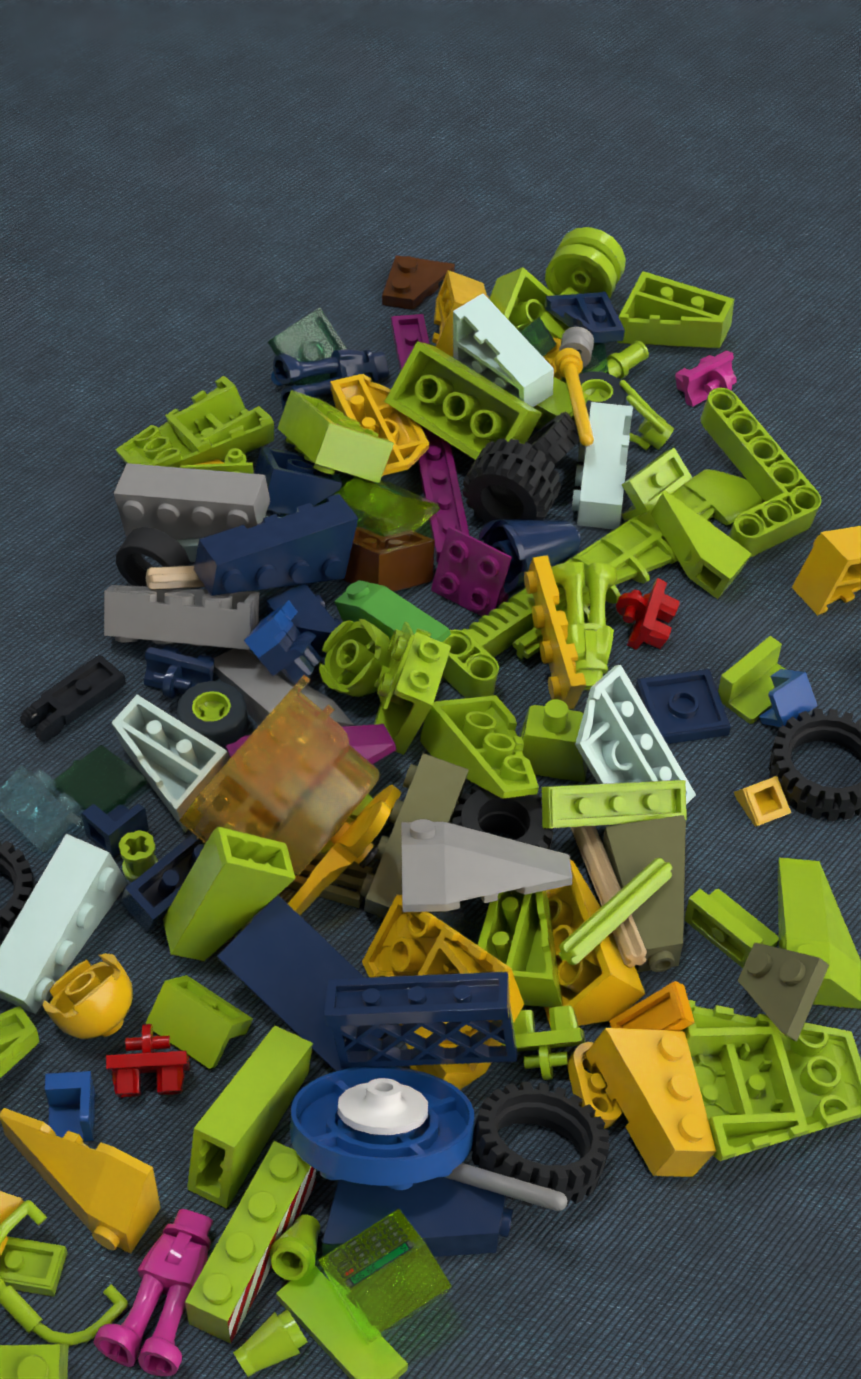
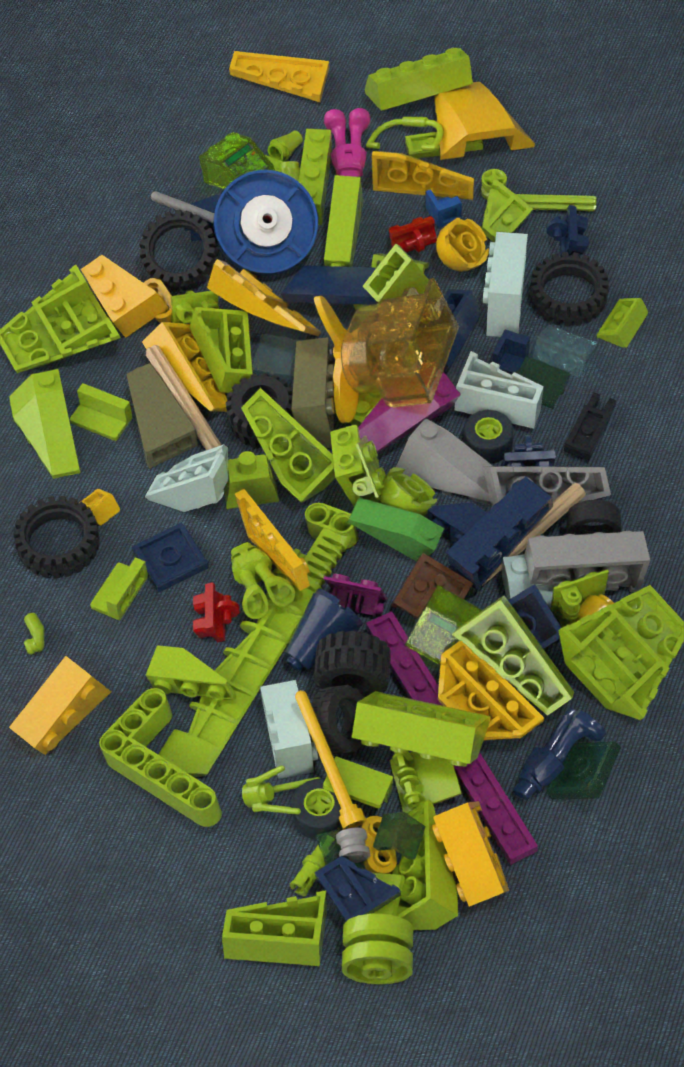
camera: 165 degrees right, 5 degrees up
(136, 854) = (489, 342): lime bush -> none
(282, 646) = (453, 469): hips -> none
(413, 280) = (543, 918): reddish brown wing -> none
(416, 1003) = (265, 241): dark blue fence -> none
(459, 863) = (267, 344): light grey wedge -> none
(500, 352) = (406, 776): light aqua wedge -> none
(612, 803) = (192, 439): lime tile -> none
(615, 911) = (169, 362): lime axle -> none
(647, 485) = (239, 719): lime panel -> none
(663, 1010) = (130, 328): light orange tile -> none
(708, 375) = (222, 886): dark pink hips -> none
(783, 985) = (60, 359): olive wing -> none
(789, 697) = (94, 569): blue panel -> none

